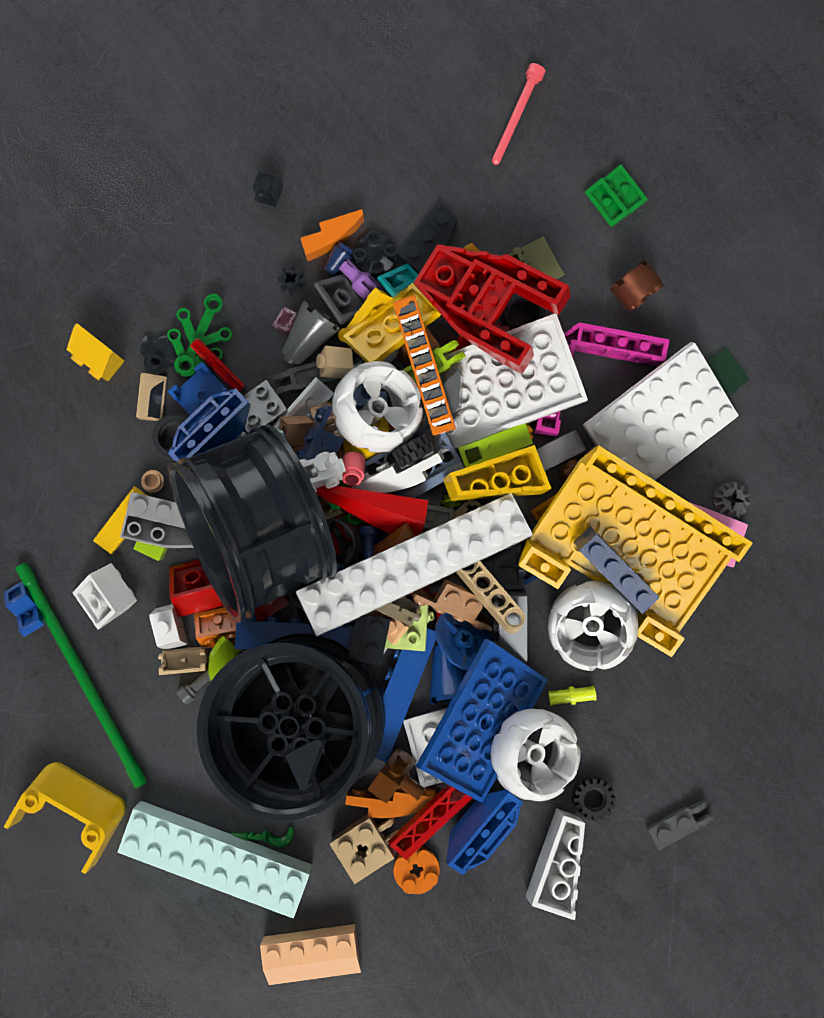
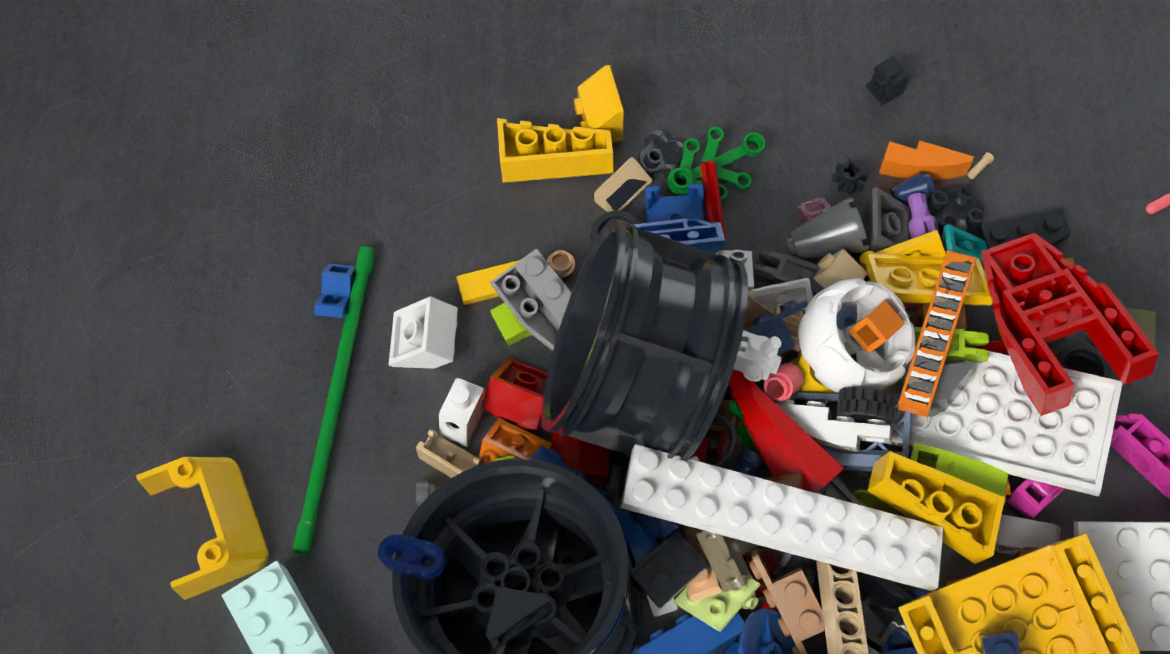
camera: 40 degrees right, 20 degrees down
(84, 409) = (552, 152): none -> yellow wedge
(219, 768) = (413, 557): none -> clear blue plate
(369, 206) = (986, 159): none -> tan piece
(385, 394) = (876, 327): none -> orange brick

